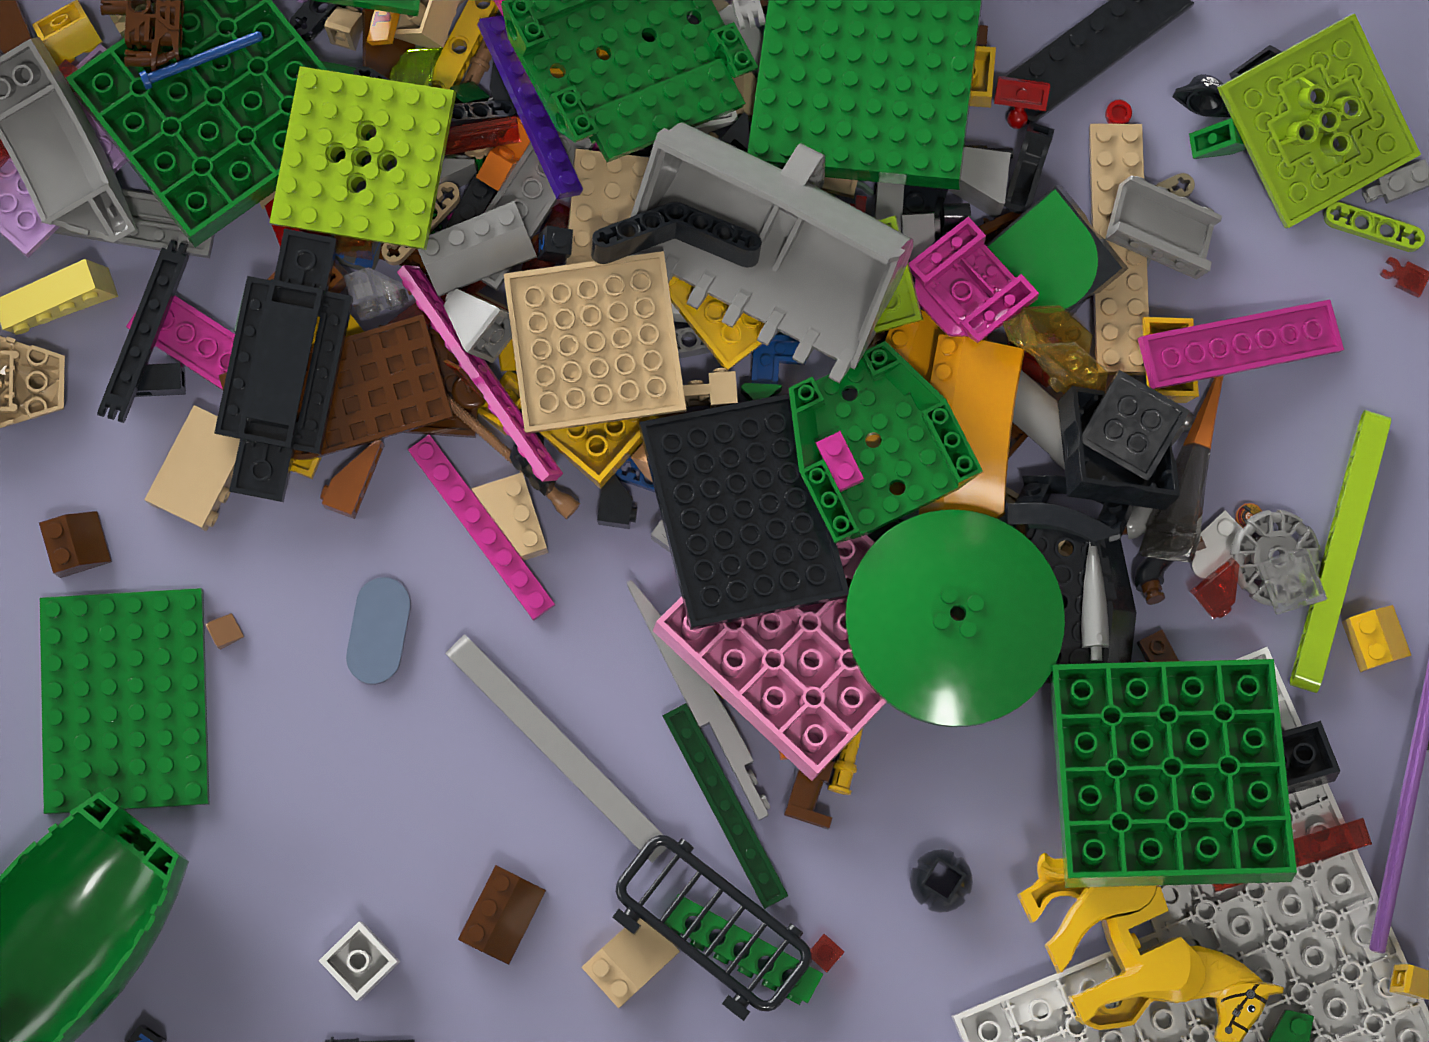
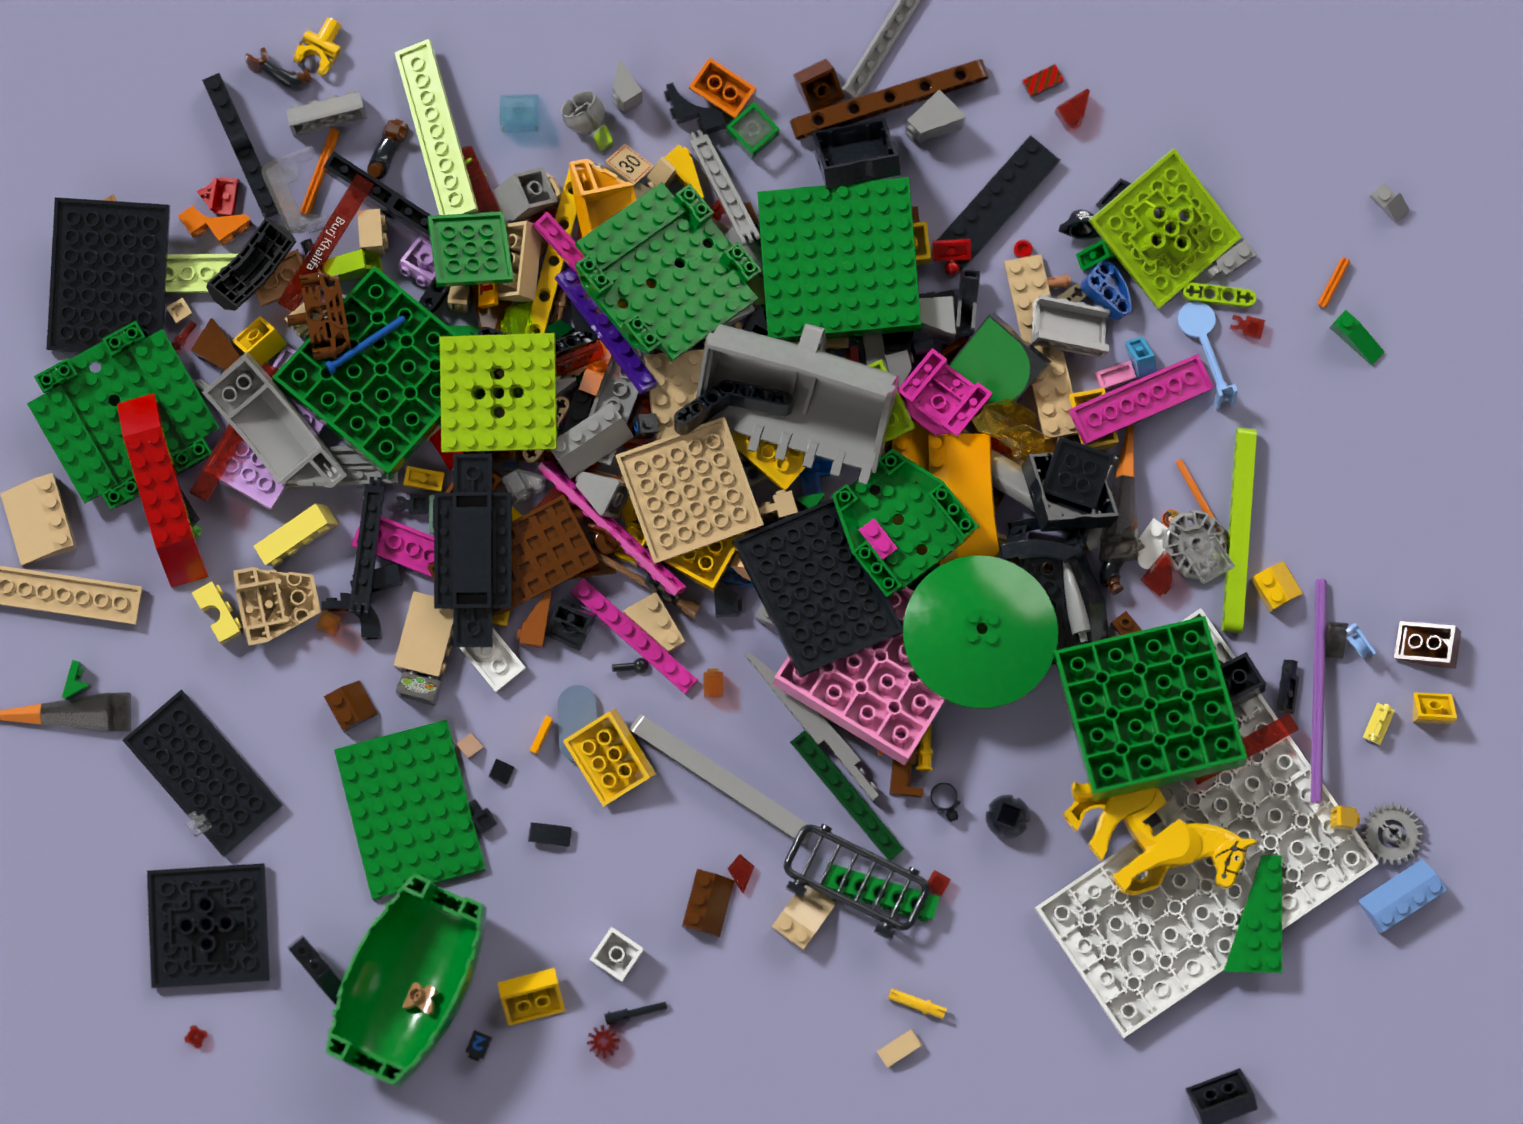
camera: 15 degrees left, 0 degrees up
(72, 426) = (329, 623): none -> clear orange brick
(76, 965) = (421, 997): none -> medium nougat animal
(127, 437) = (370, 623): none -> black arch
(171, 537) = (419, 688): none -> flat silver slope
(219, 734) = (483, 818): none -> black plate
(226, 290) = (417, 504): none -> black plate
(230, 994) = (531, 996): none -> yellow slope
(244, 258) = (424, 479): none -> yellow plate
(259, 674) = (501, 771): none -> black slope
(285, 526) = (495, 663): none -> white plate
(306, 774) = (549, 834): none -> black slope
(324, 636) = (541, 735): none -> light orange tile
(405, 484) = (574, 616): none -> black brick
(410, 685) = (609, 757): none -> yellow slope
(479, 568) = (639, 665): none -> black bar
(557, 881) = (741, 871): none -> clear red piece
(574, 613) = (713, 683): none -> clear orange brick
(864, 862) = (951, 814): none -> black piece
(1159, 165) = (1059, 281): none -> nougat pin
(1212, 306) = (1116, 375): none -> bright pink tile
(1228, 181) = (1112, 285): none -> blue beam
(1251, 288) = (1141, 357): none -> dark azure slope
(1289, 483) = (1195, 490): none -> orange piece
(1339, 256) = (1197, 321): none -> light blue piece
(1366, 781) = (1288, 687): none -> black hinge

